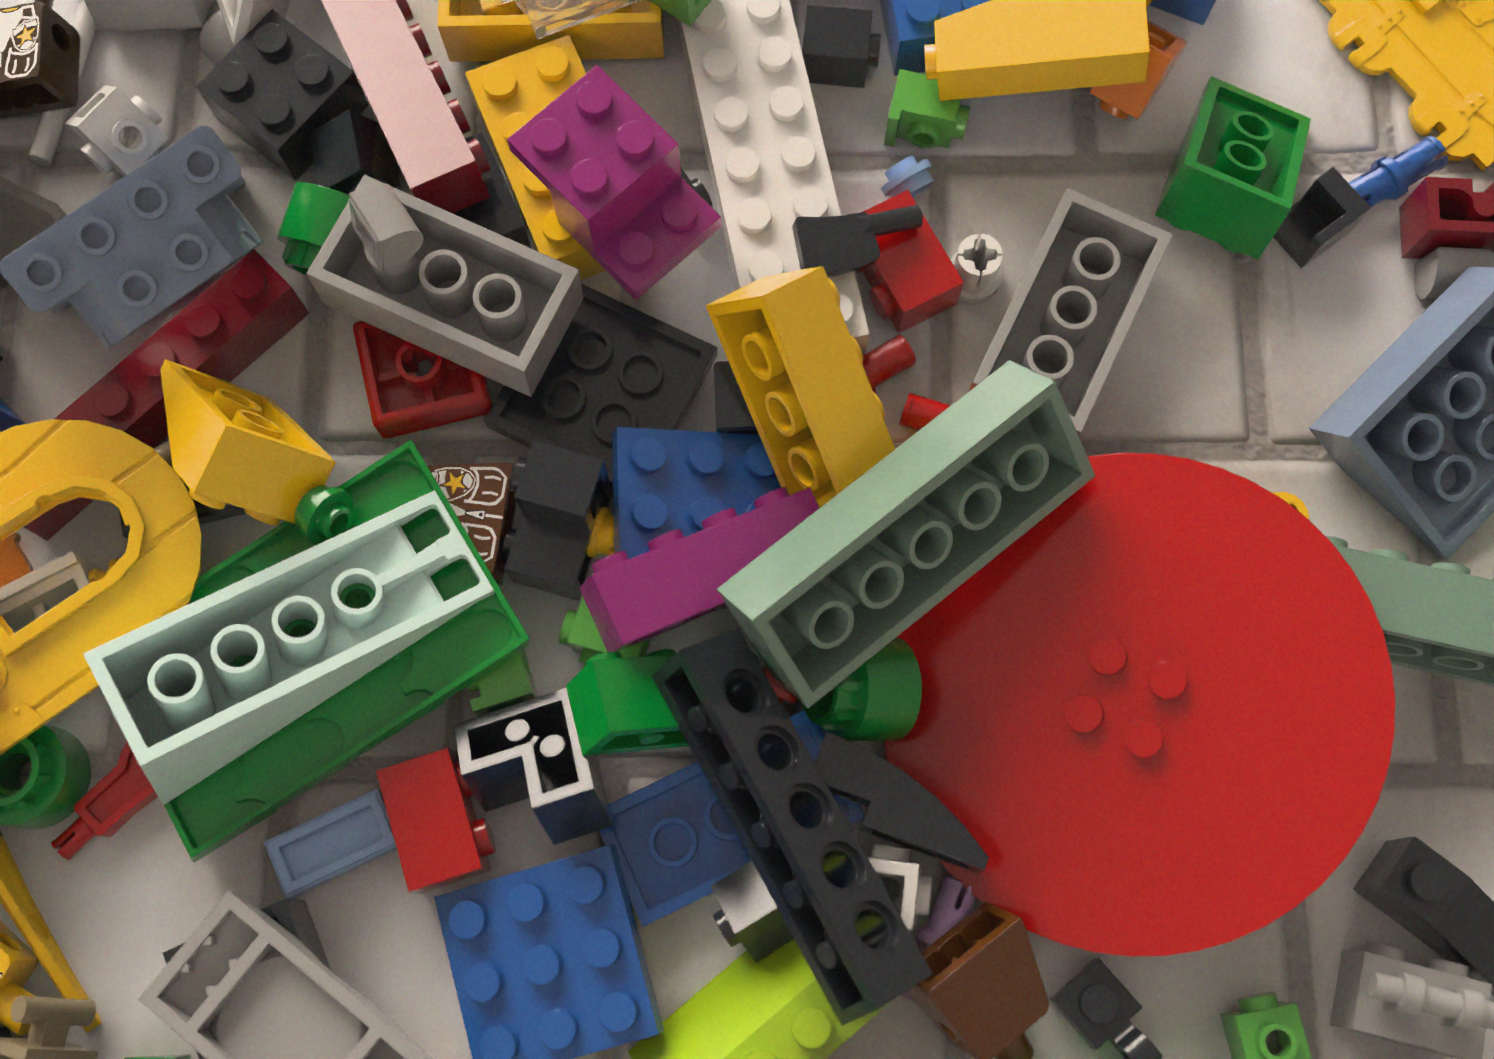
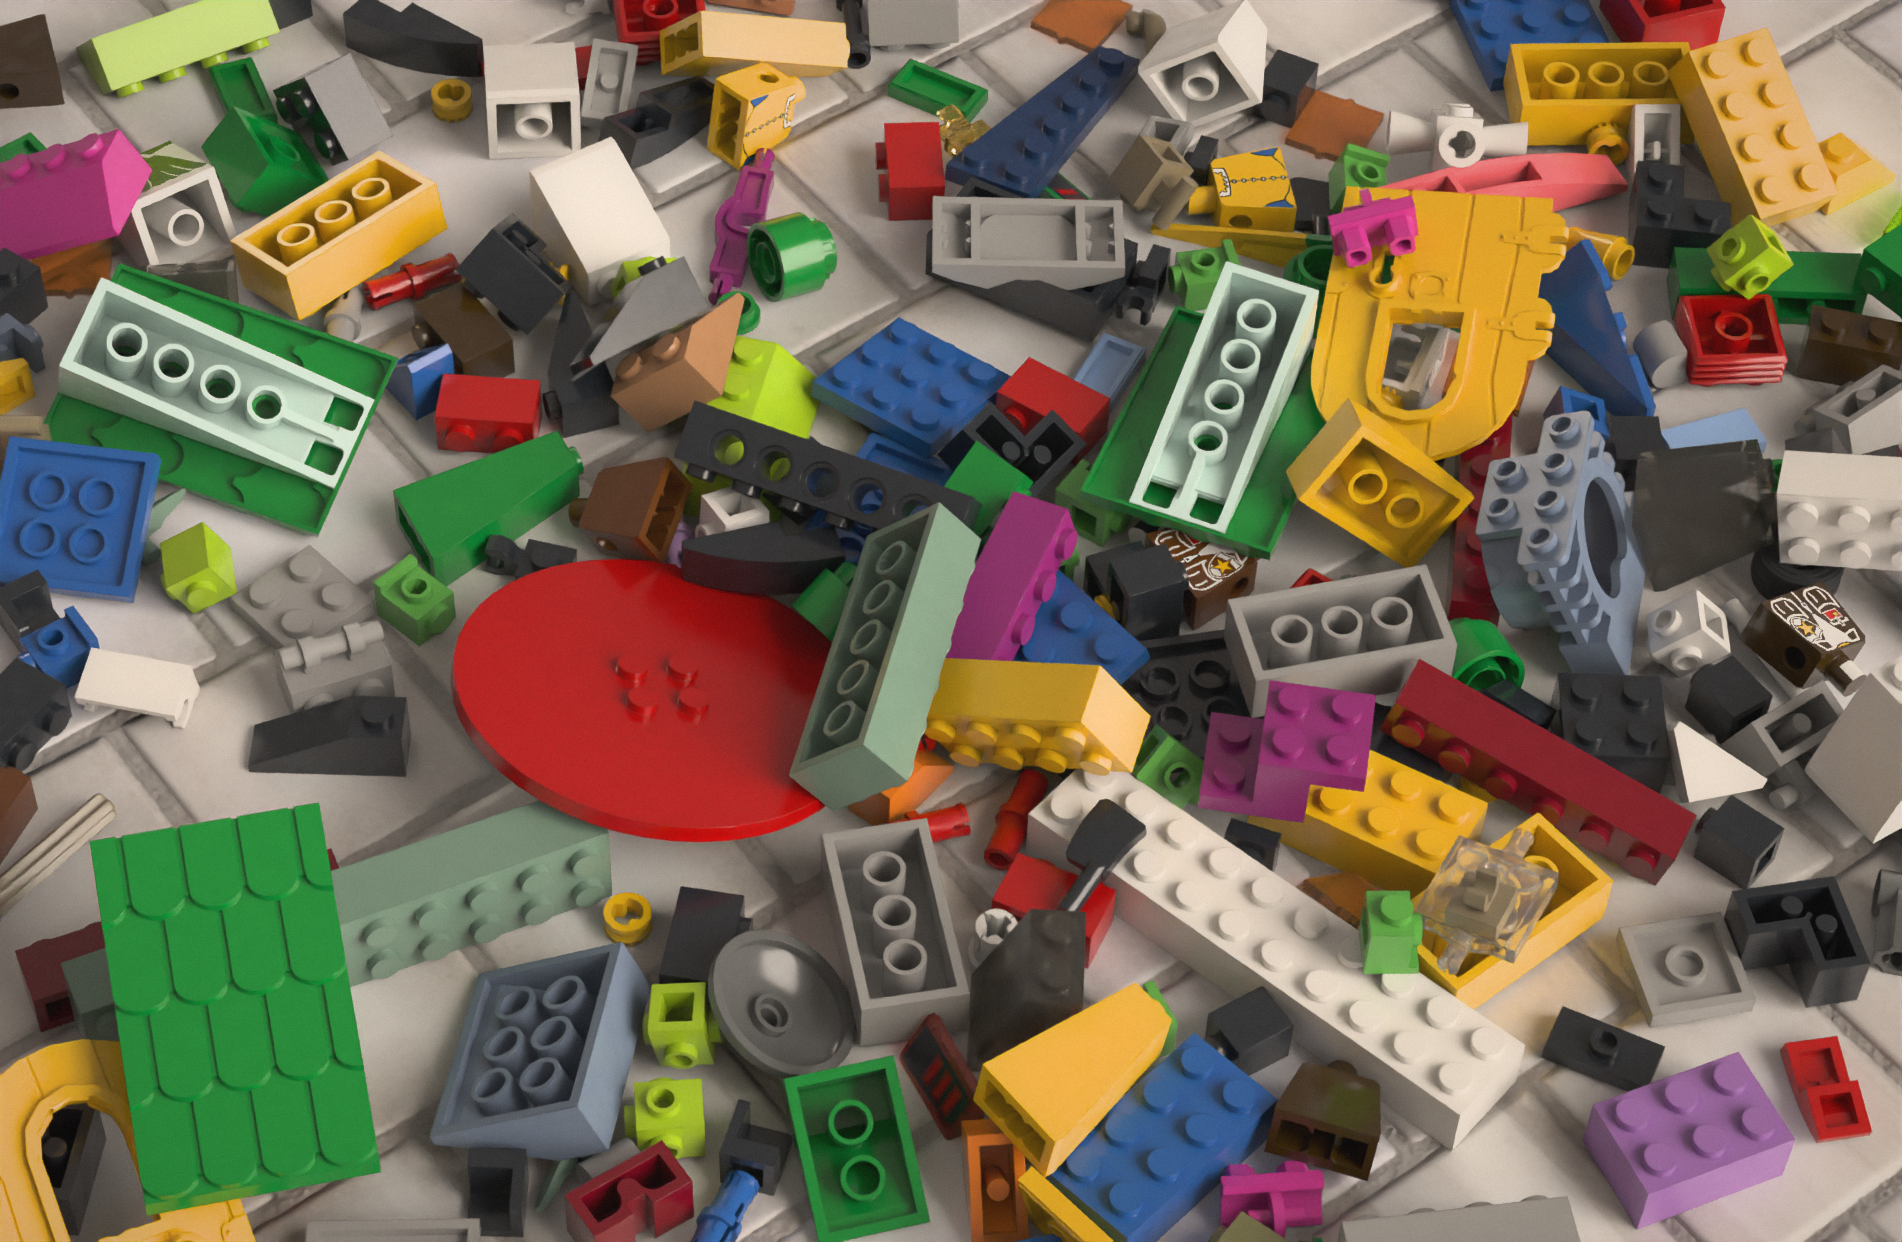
camera: 140 degrees right, 25 degrees down
(92, 879) = (1198, 273): none -> bright green brick
(151, 59) = (1726, 698): none -> black brick
(178, 922) = (1148, 283): none -> black plate
(324, 513) = (1276, 476): green plate -> none
(384, 225) = (1401, 601): light grey brick -> none
(655, 75) = (1340, 894): none -> clear orange piece
(681, 306) = (1159, 757): none -> bright green brick
(908, 176) = (1103, 973): light blue plate -> none
(1004, 164) = (1027, 983): none -> clear smoke slope
(1114, 164) = (941, 1076): none -> slope
(1219, 289) = (781, 1004): none -> dark grey dish
(1246, 422) = (698, 931): none -> black brick
(1318, 353) = (681, 1025): none -> lime brick
(1385, 281) = (670, 1113): none -> lime brick

